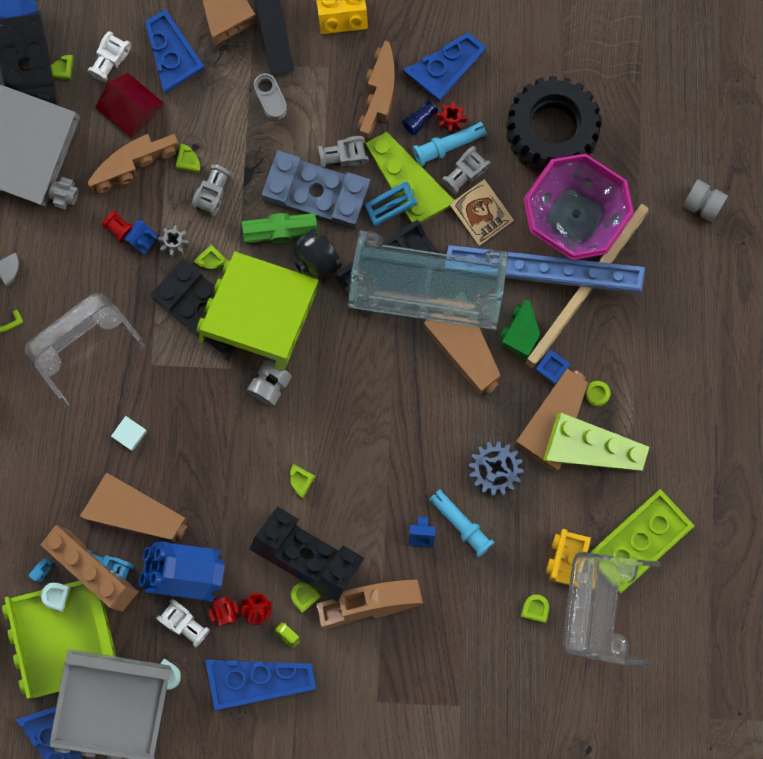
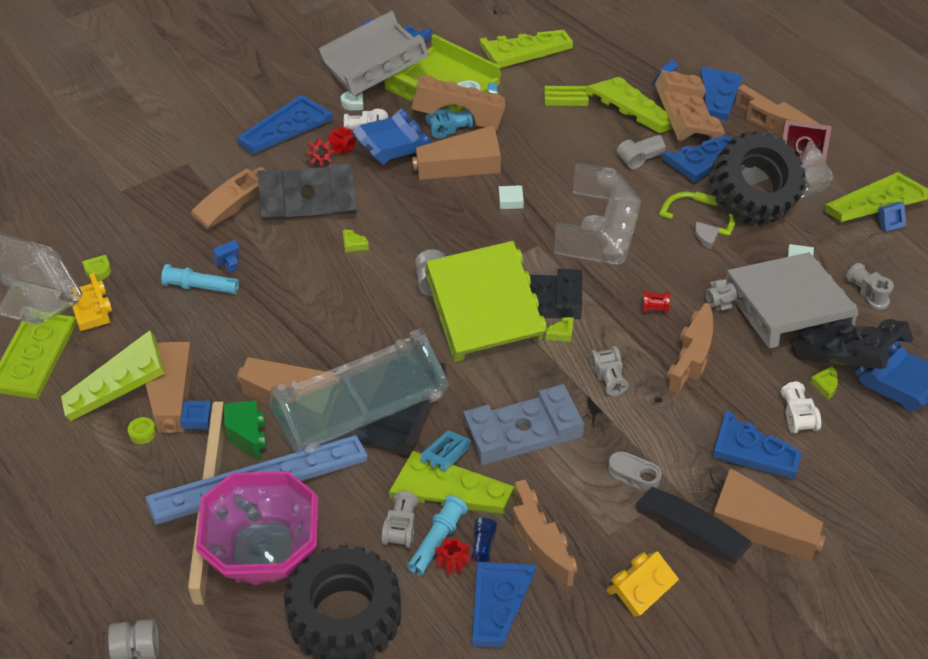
camera: 145 degrees right, 30 degrees down
(128, 104) = (745, 392): dark red slope -> none
(141, 237) = (629, 304): blue tile -> none
(177, 236) = (602, 317): light grey gear -> none
(187, 160) = (653, 384): lime tile -> none
(278, 228) = (525, 377): bright green piece -> none
(287, 635) = (283, 153): lime tile -> none
(315, 255) = (474, 365): black cylinder -> none
(344, 152) = (526, 465): light grey connector -> none
(481, 212) = (358, 502): tan sticker -> none
(486, 463) = (196, 324): sand blue gear -> none

